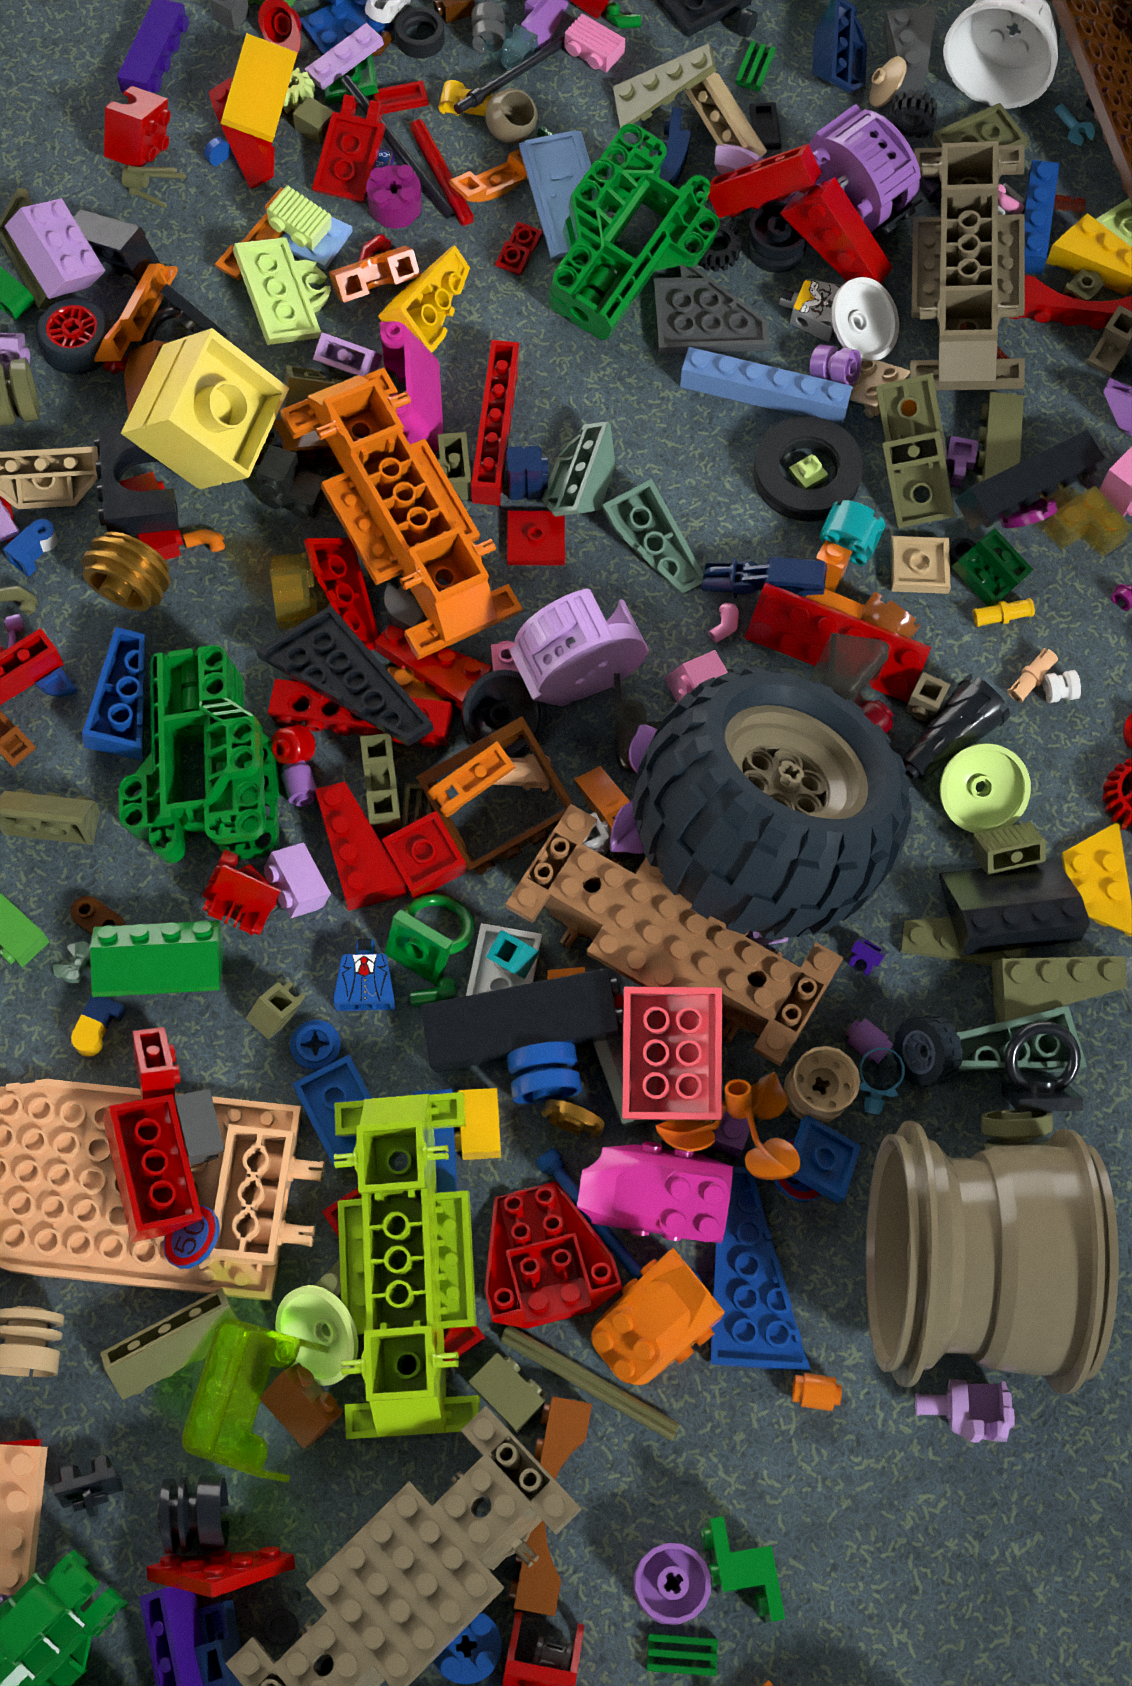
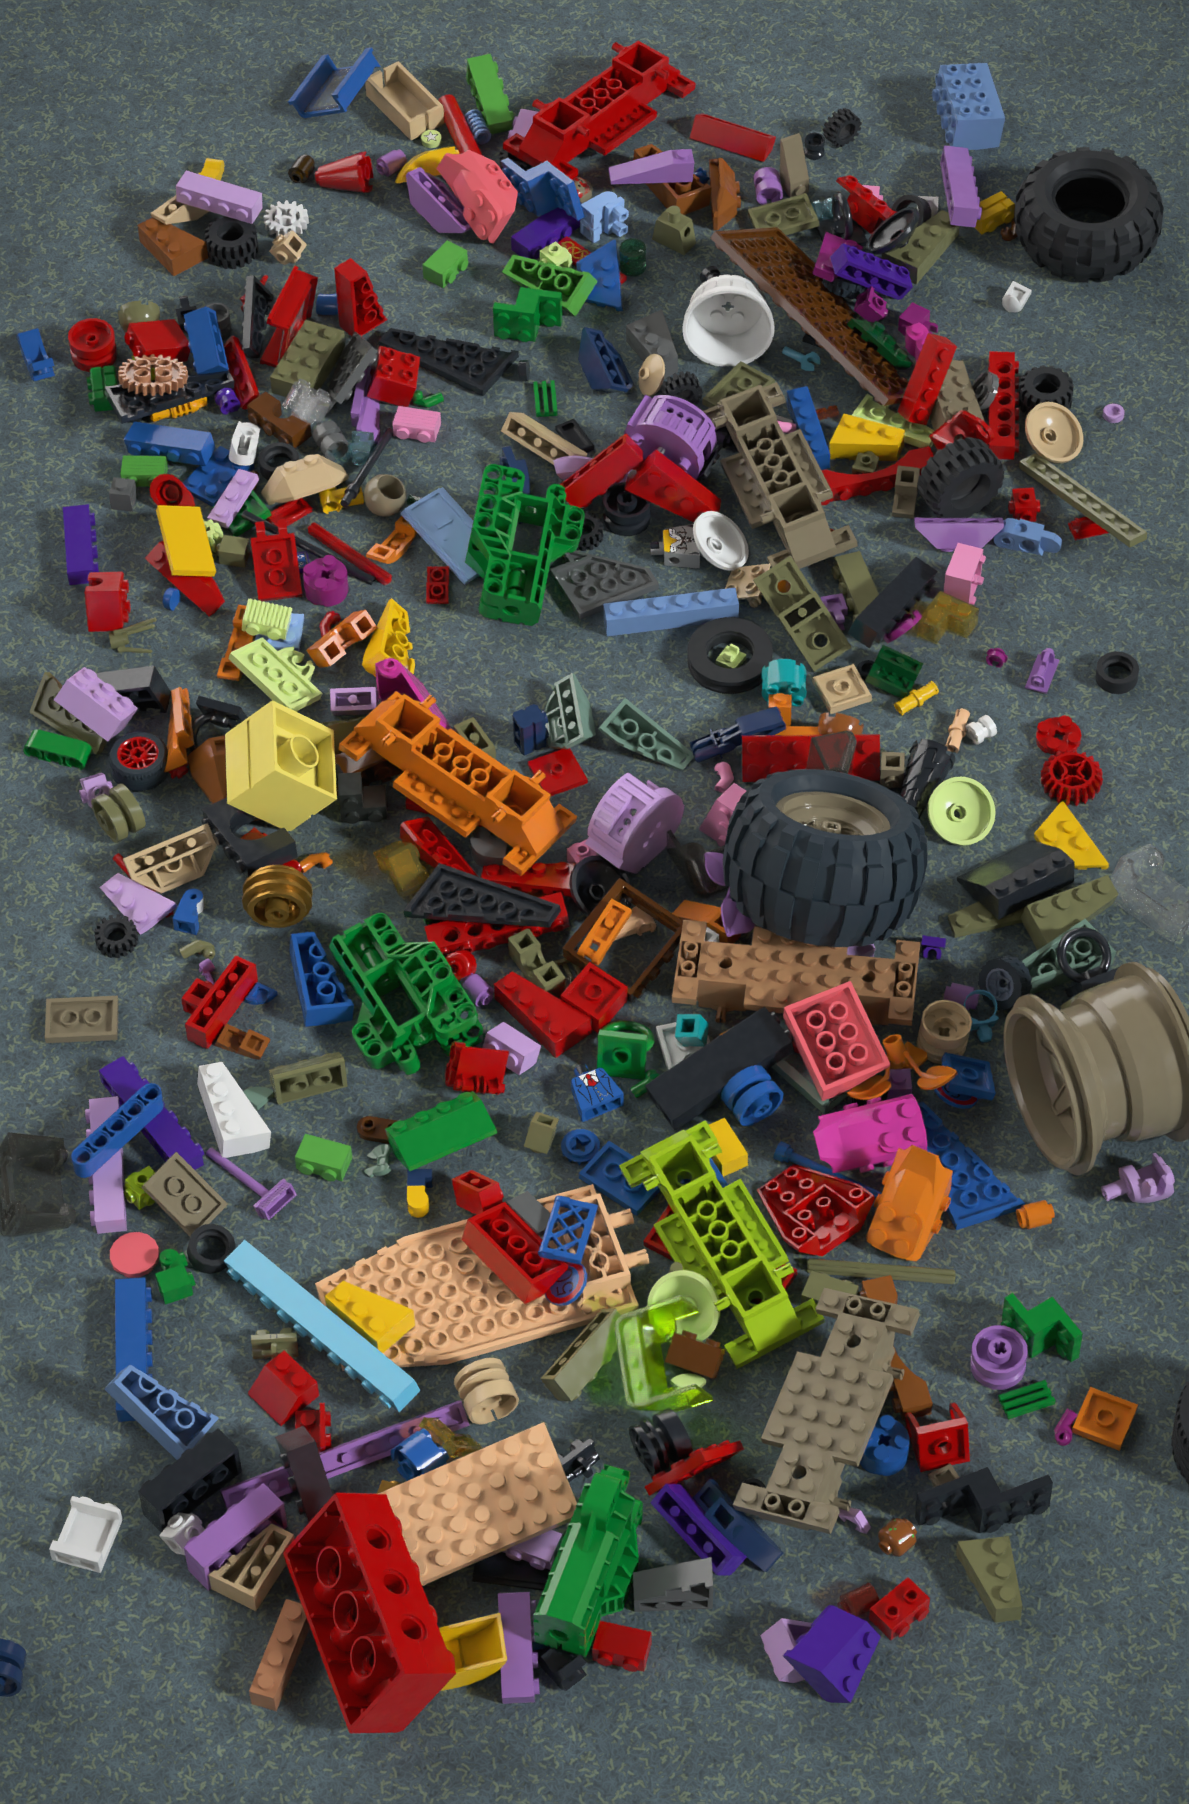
camera: 20 degrees left, 15 degrees down
(234, 1194) = (561, 1252): none -> blue window
(276, 1435) = (688, 1379): none -> yellowish green tile
(435, 61) = (303, 479): none -> tan wedge
(495, 423) = (488, 704): red brick -> none
(572, 1118) = (786, 1115): pearl gold tile -> none
(660, 85) = (475, 445): wing -> none
(836, 365) = (715, 577): medium lavender wheel -> none
(1009, 848) = (996, 842): olive brick -> none

